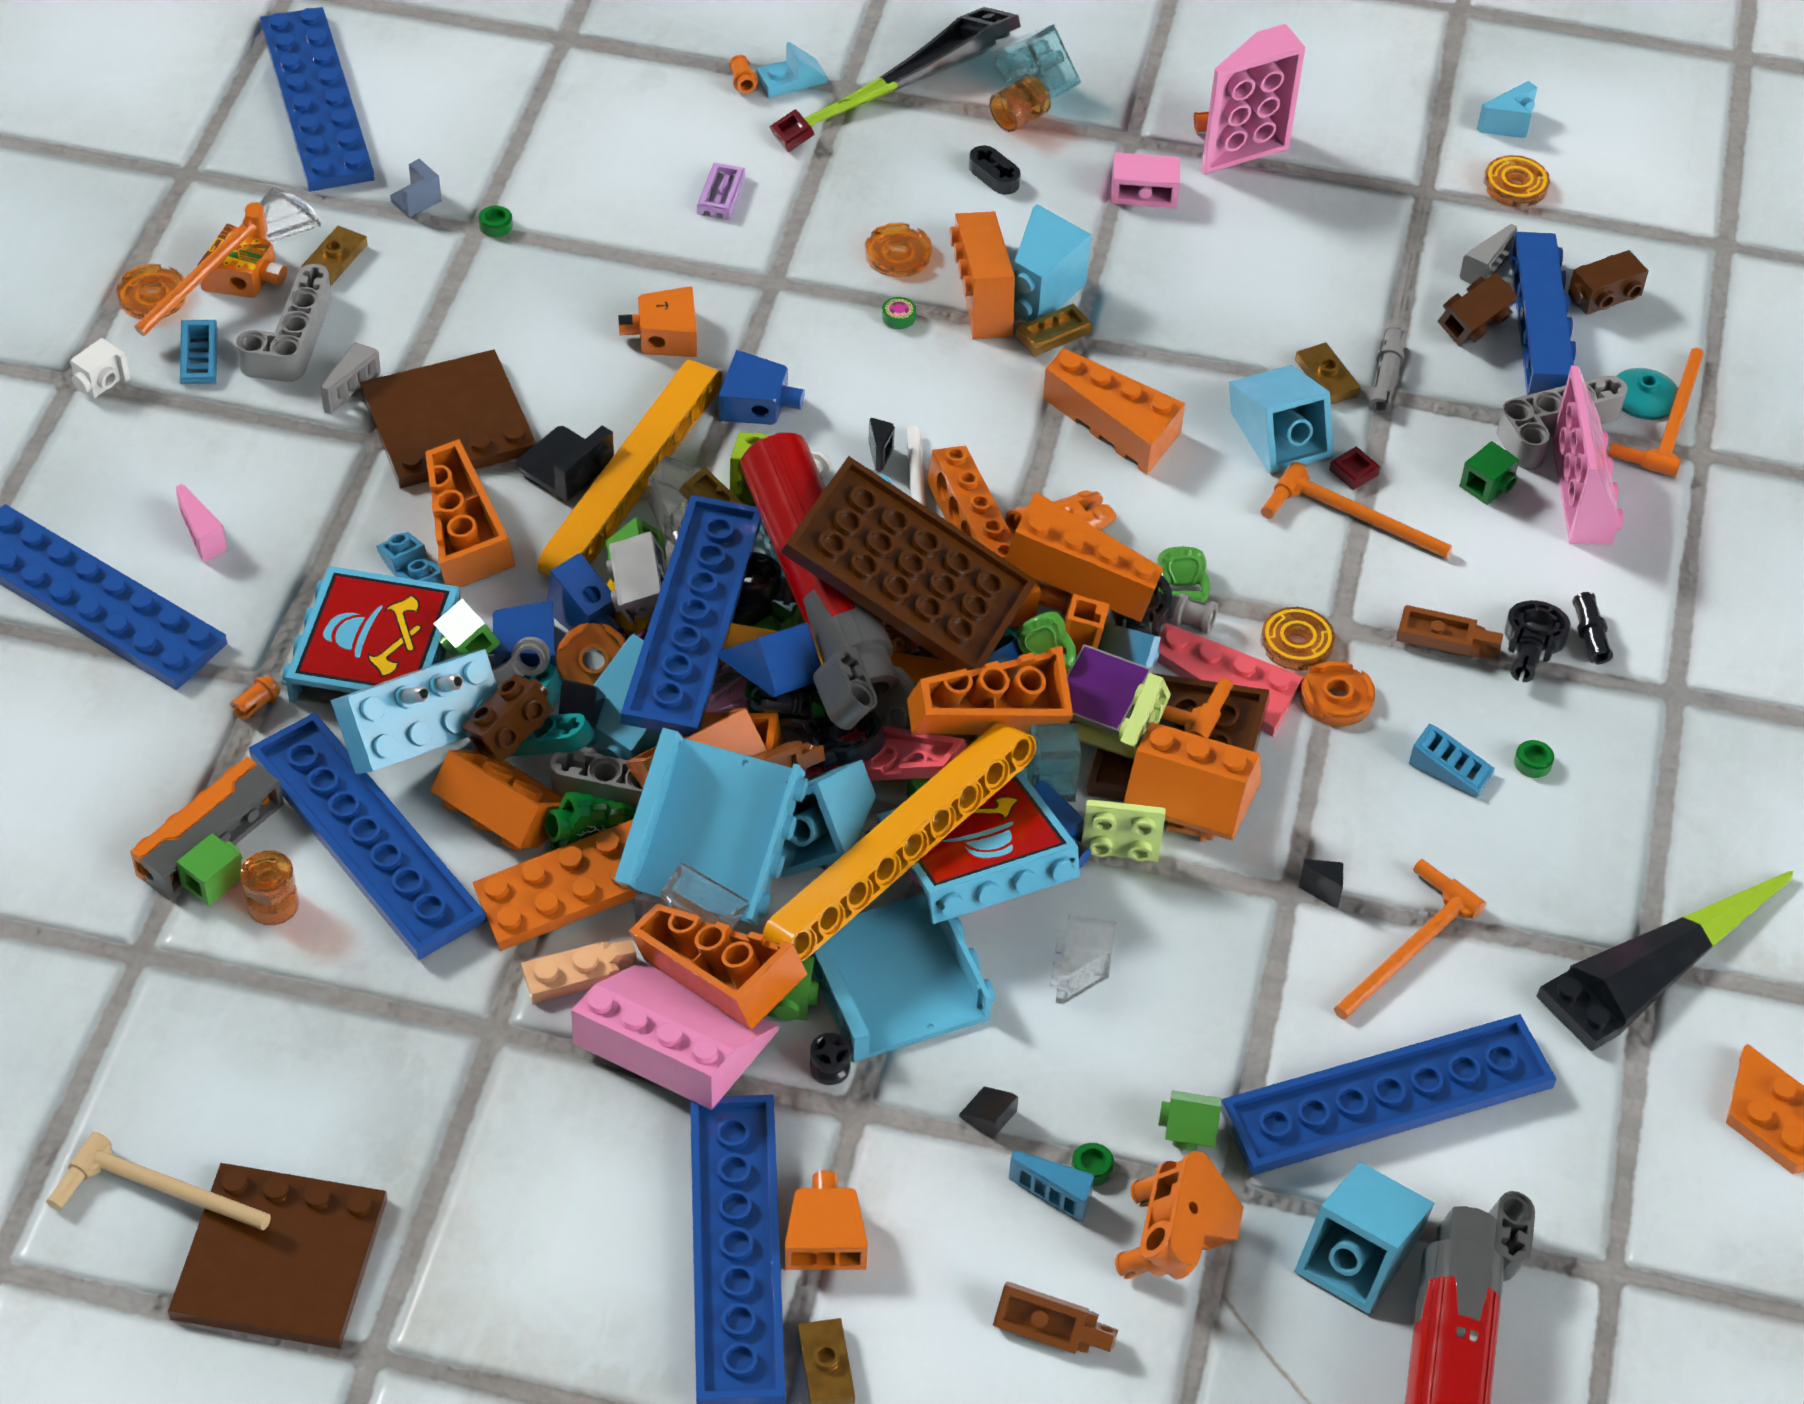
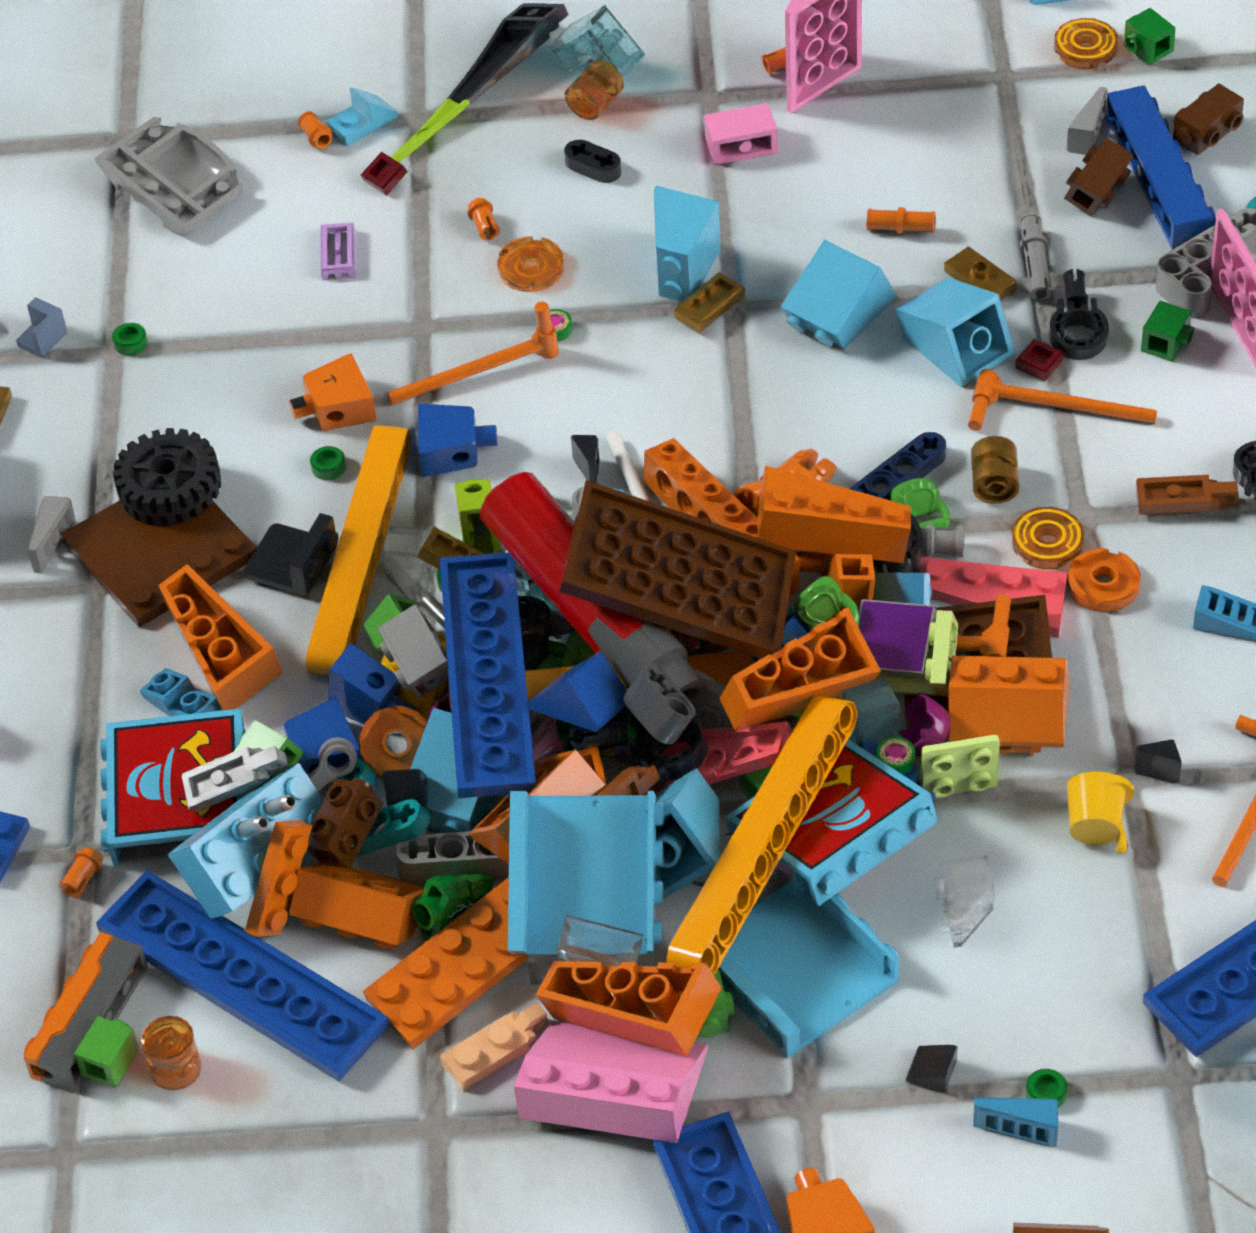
camera: 10 degrees left, 0 degrees up
(420, 644) = (231, 775): none -> light grey hinge
(427, 752) = (278, 878): none -> orange plate
(476, 355) = (167, 476): none -> black wheel
(592, 79) = (172, 173): none -> light grey slope
(634, 384) = (327, 463): none -> green tile
(837, 1051) = (769, 1051): black wheel -> none
(869, 189) = (481, 213): none -> orange pin
(879, 325) = (542, 343): none -> orange bar
(984, 274) = (625, 265): orange wedge -> none
(1064, 801) = (897, 754): none -> tile
(1107, 782) = (927, 723): none -> magenta hair
(1115, 407) = (795, 362): orange wedge -> none
(1179, 353) = (837, 296): none -> medium azure slope
(1186, 1214) = (1156, 1112): orange piece -> none
(1190, 1119) = (1124, 1021): bright green brick -> none
(1192, 523) = (911, 455): none -> dark blue beam
(1244, 907) = (1097, 808): none -> yellow hat
(1268, 559) = (995, 469): none -> pearl gold wheel
(1269, 301) = (901, 220): none -> orange pin
(1409, 435) = (1078, 314): none -> black pin
(1580, 189) = (1149, 36): none -> green brick

